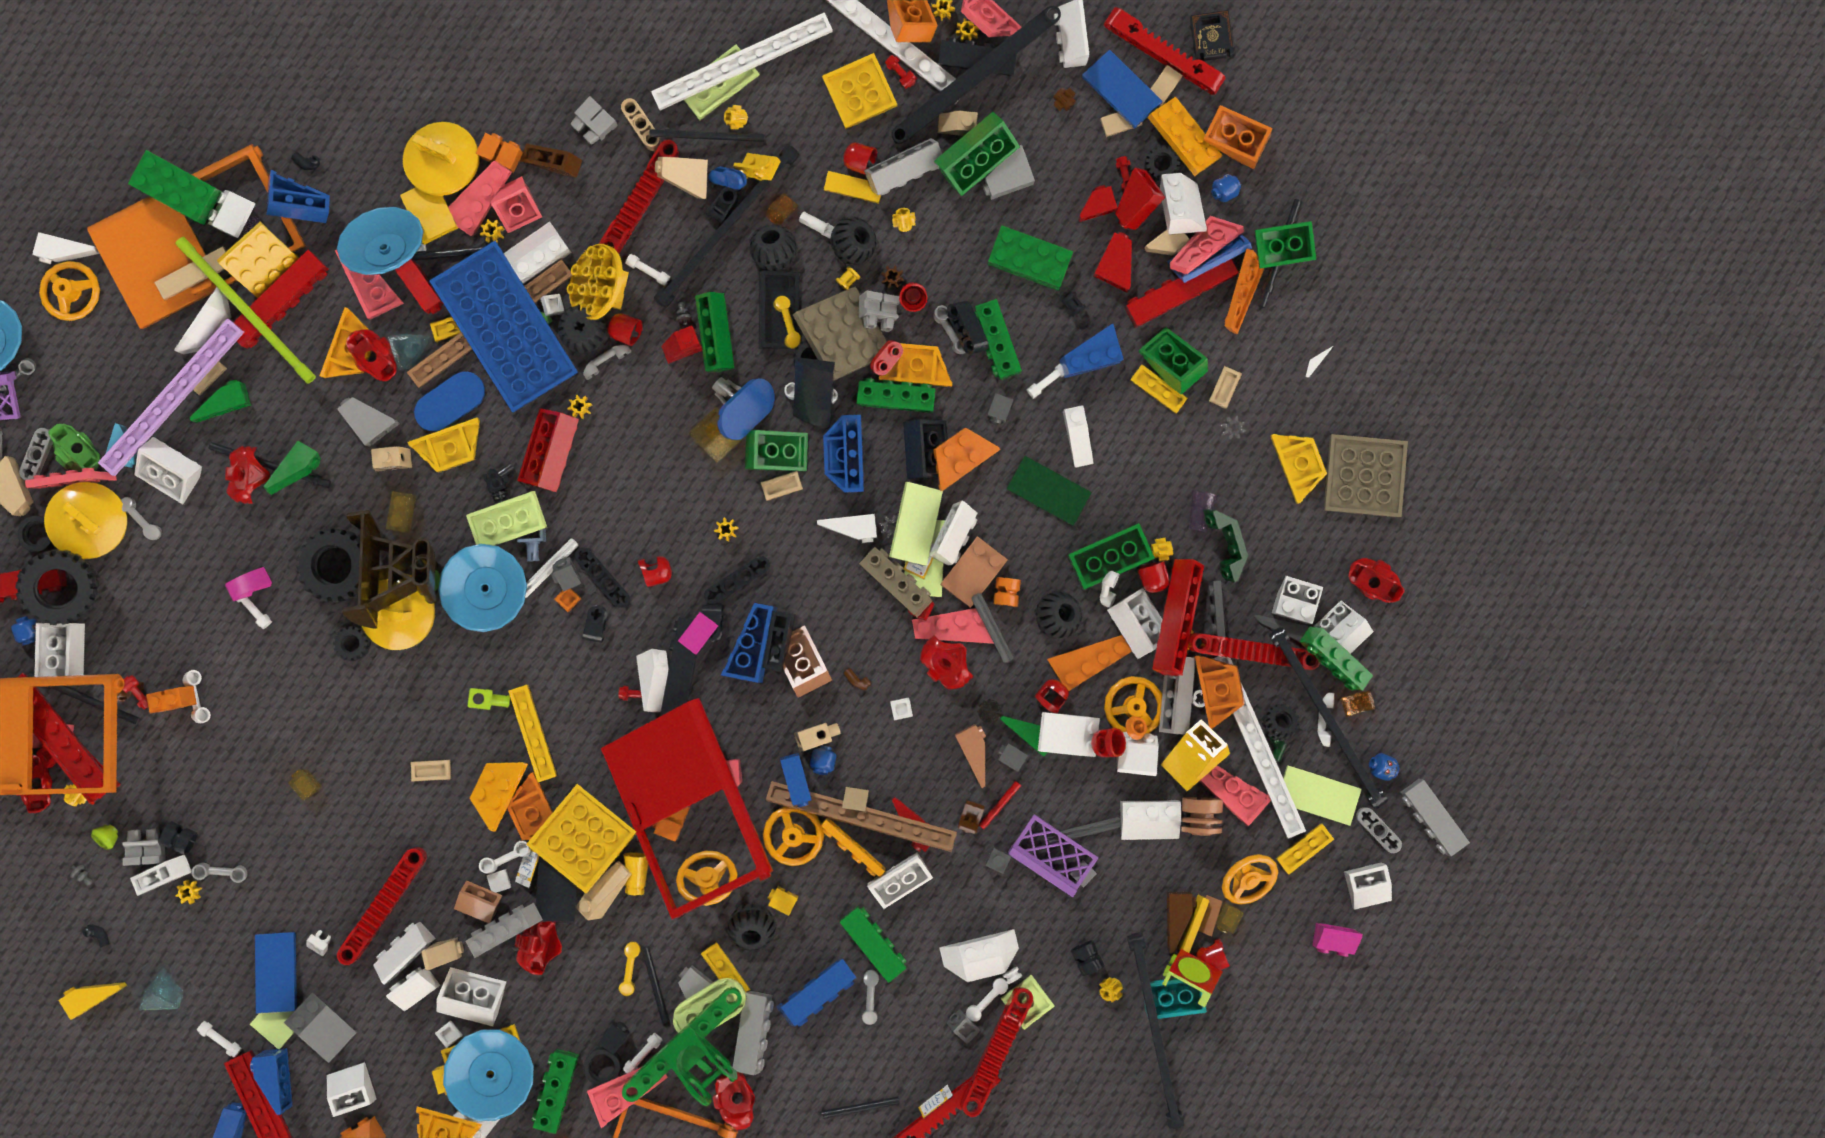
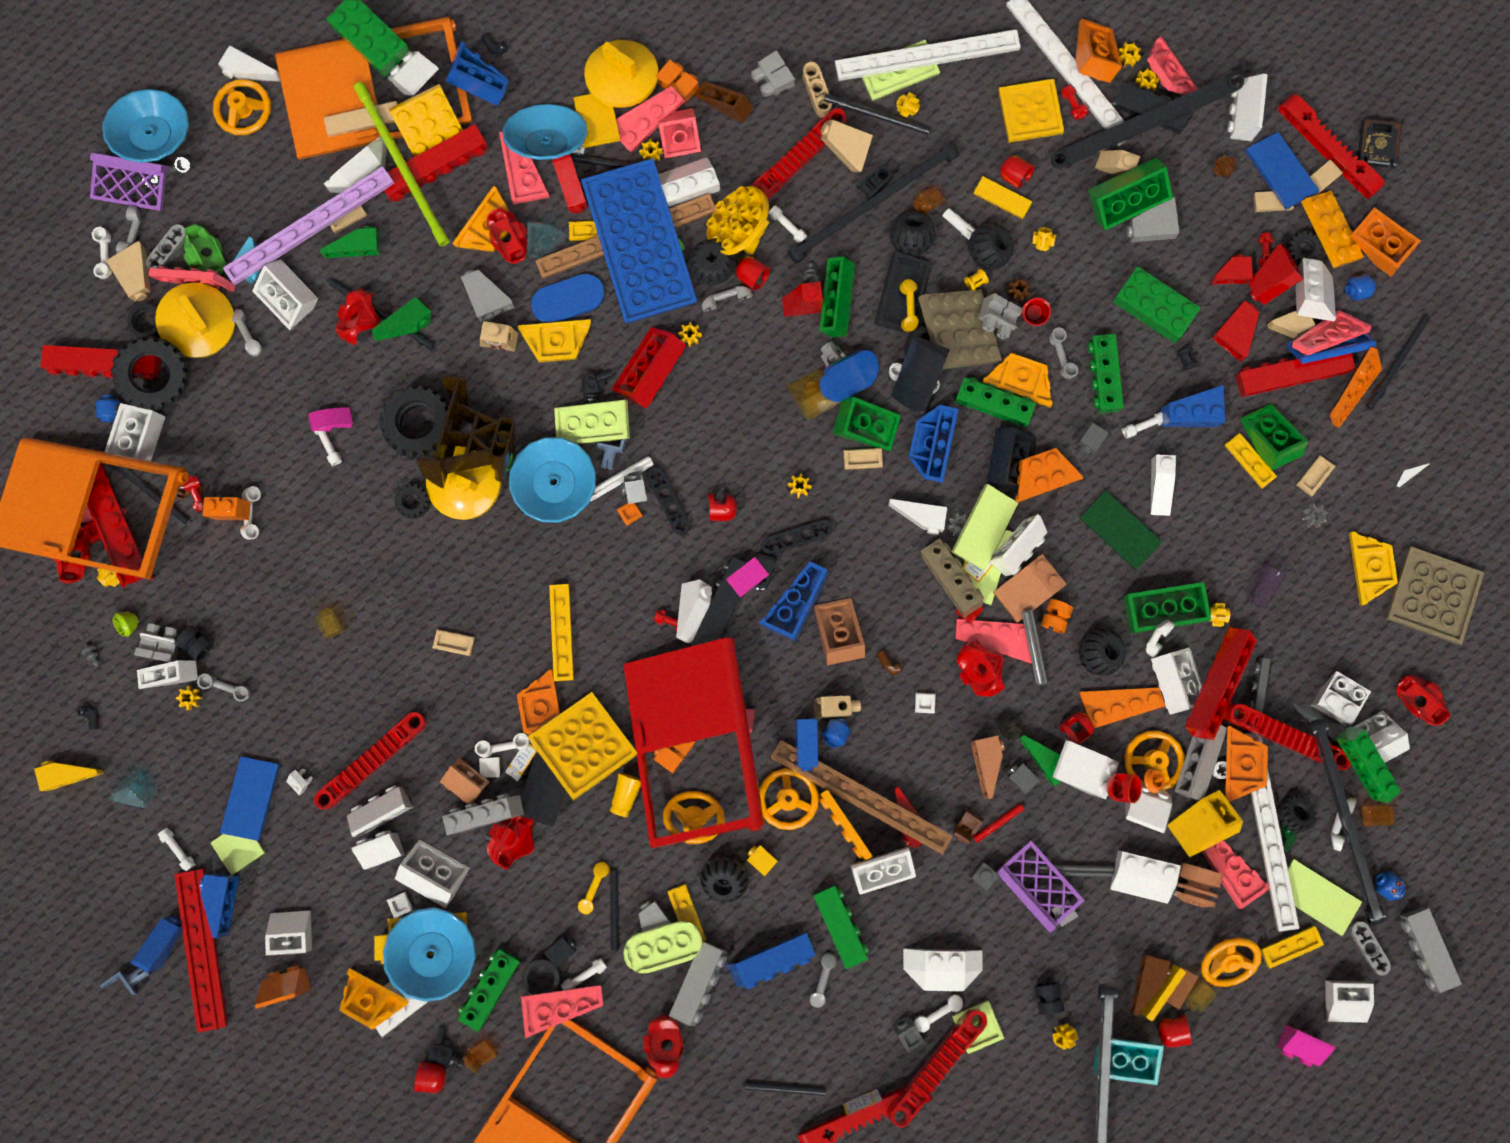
camera: 20 degrees right, 5 degrees down
(320, 1027) = (277, 864): slope -> none
(401, 512) = (493, 389): clear yellow brick -> none
(442, 953) = (417, 821): tan slope -> none
(489, 699) = (529, 589): lime bracket -> none
(496, 790) = (511, 678): light orange wing -> none
(552, 304) = (689, 233): white tile -> none
(594, 627) = (647, 546): black piece -> none
(604, 891) = (590, 804): tan slope -> none
(686, 1051) = (630, 983): green piece -> none
(728, 177) = (887, 157): blue arm -> none
(758, 166) = (917, 154): yellow bracket -> none
(778, 639) = (823, 603): black slope -> none
(855, 799) = (859, 778): tan sticker -> none
(885, 356) = (997, 362): plate -> none
(903, 167) = (1056, 189): light grey brick -> none
(967, 327) = (1080, 354): black beam -> none
(1012, 975) = (969, 995): white bush -> none
(1154, 576) = (1205, 639): red helmet -> none
(1194, 973) = (1156, 1040): lime panel -> none
(1233, 566) = (1284, 650): dark green slope -> none
(1285, 244) = (1408, 353): green slope -> none

